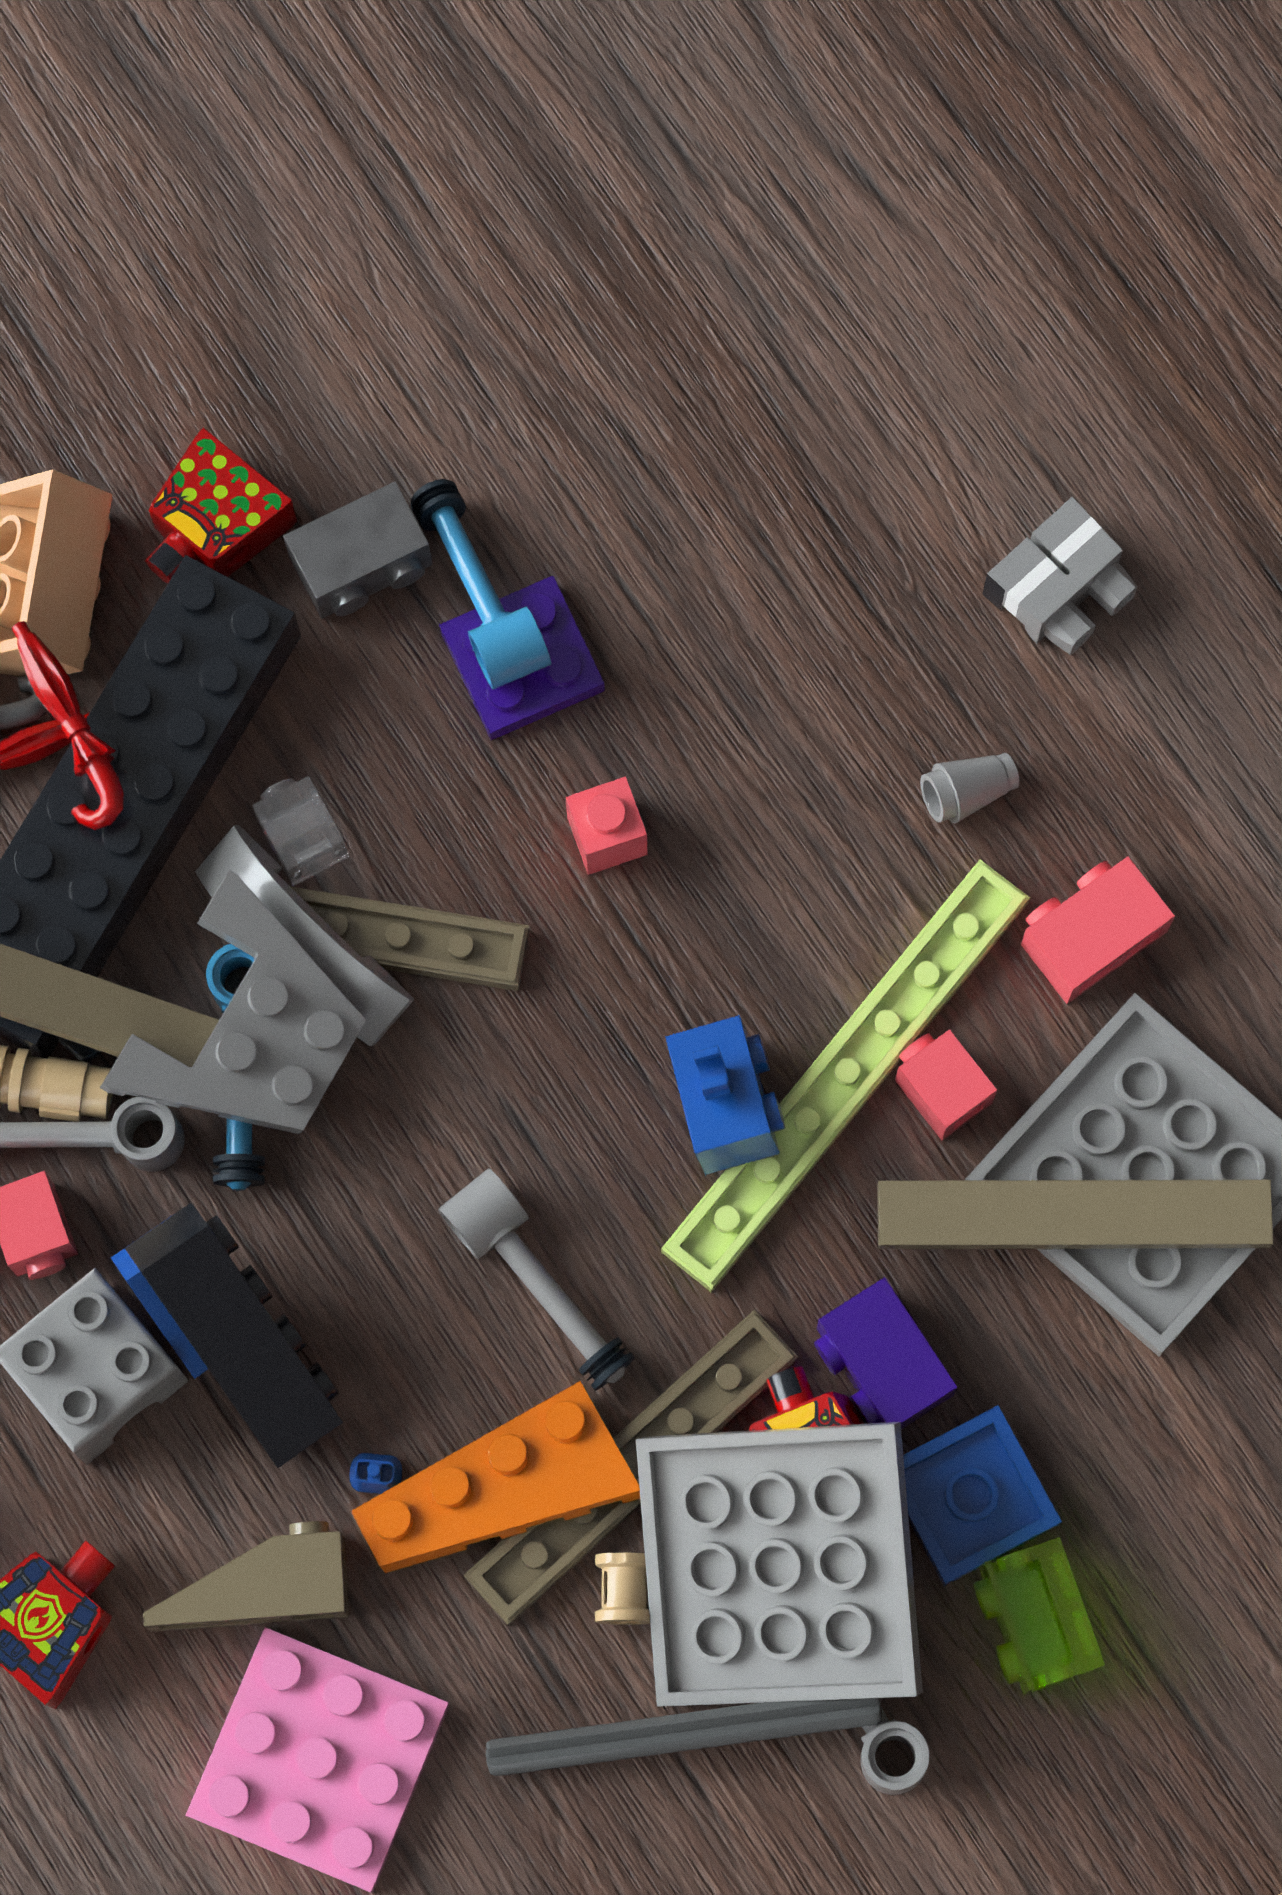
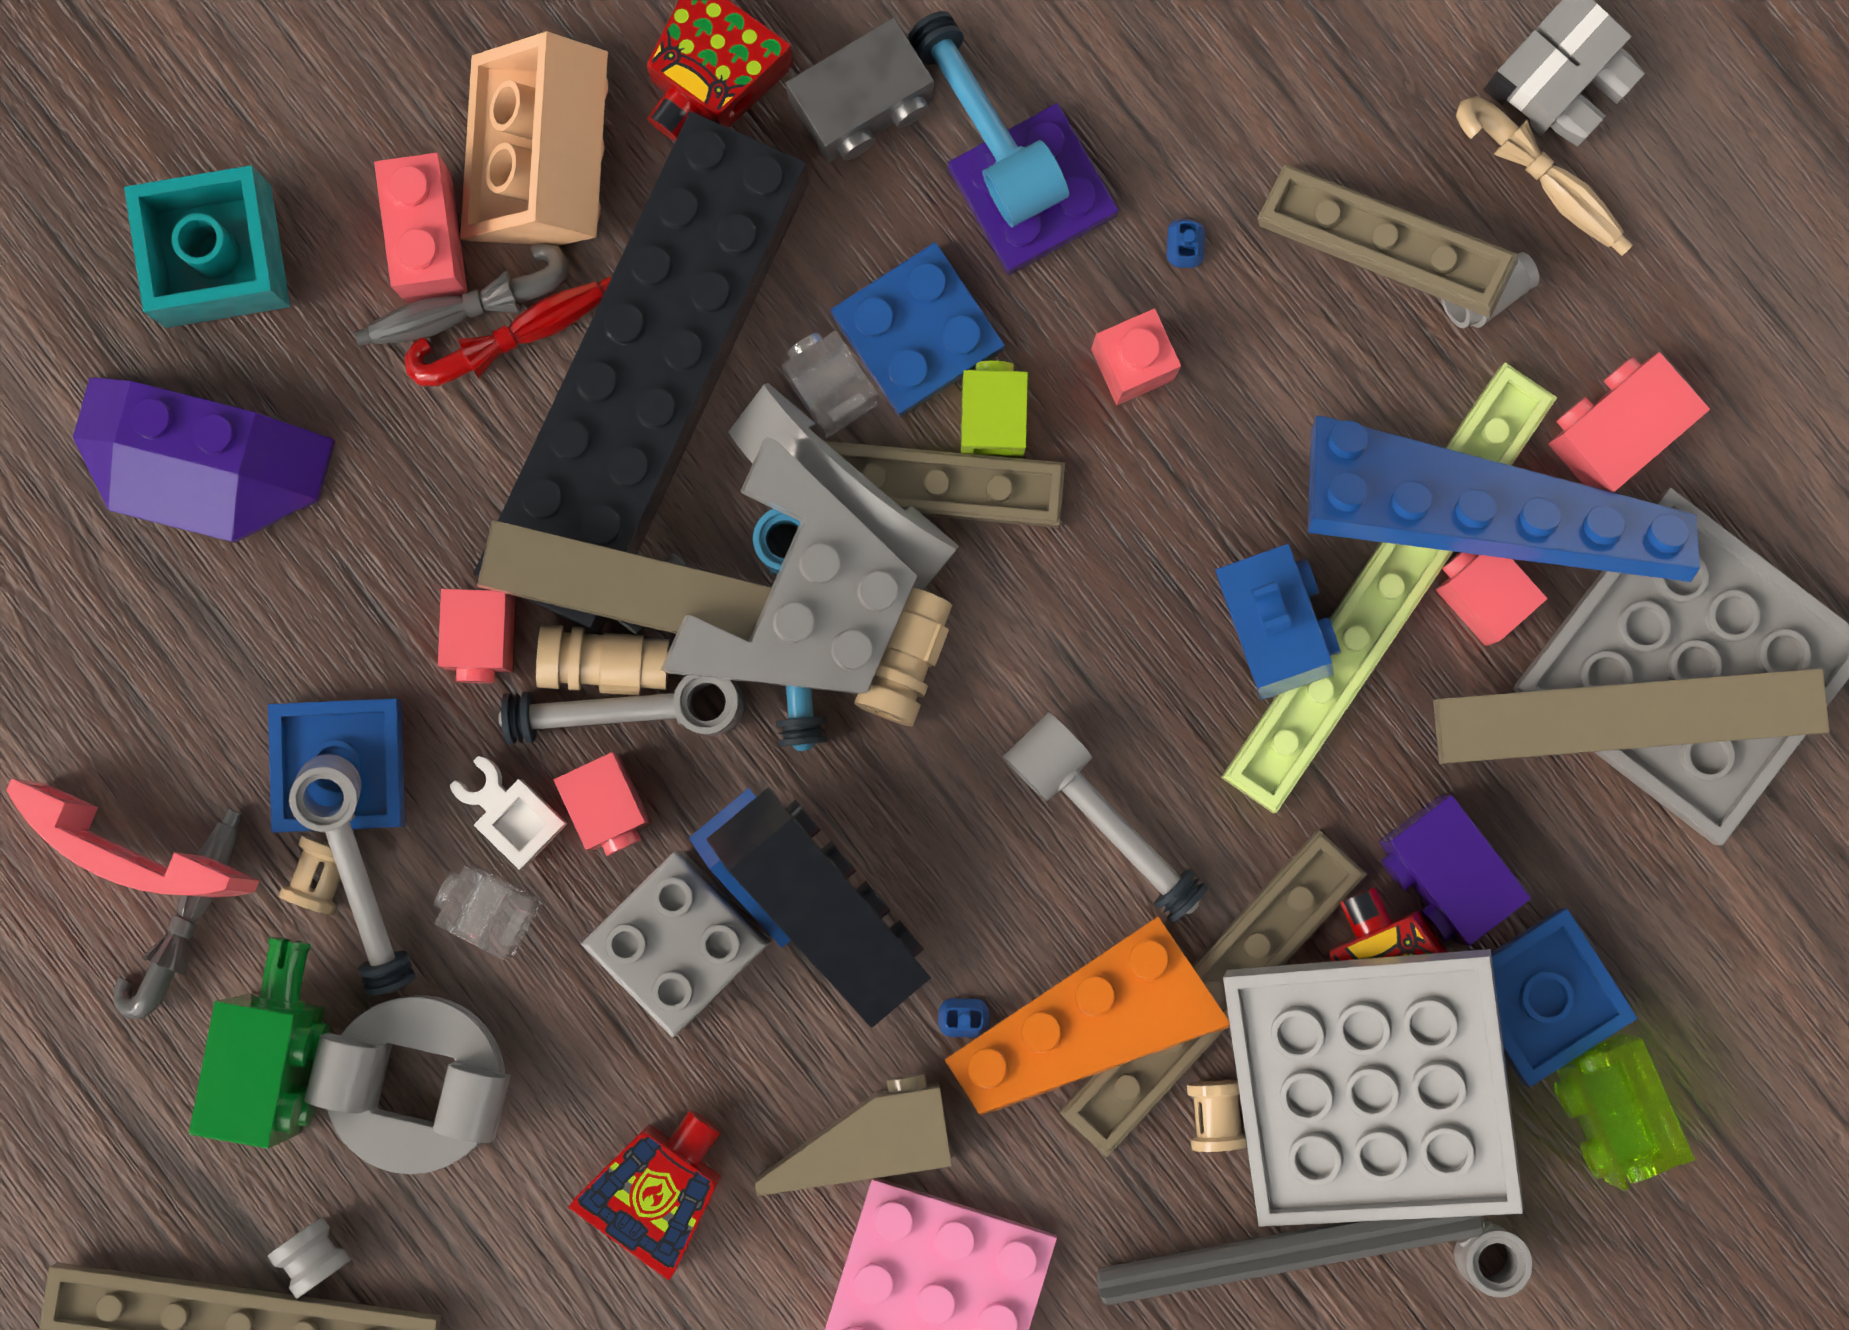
camera: 10 degrees left, 10 degrees up
(89, 752) = (616, 327): red piece -> none
(349, 1105) = (909, 654): none -> tan axle
(394, 785) = (917, 329): none -> blue plate
(461, 867) = (994, 410): none -> lime brick
(670, 721) = (1185, 243): none -> blue rock
(867, 730) = (1388, 240): none -> dark tan tile
(904, 986) = (1447, 500): none -> blue wing
(1055, 697) = (1567, 192): none -> tan piece

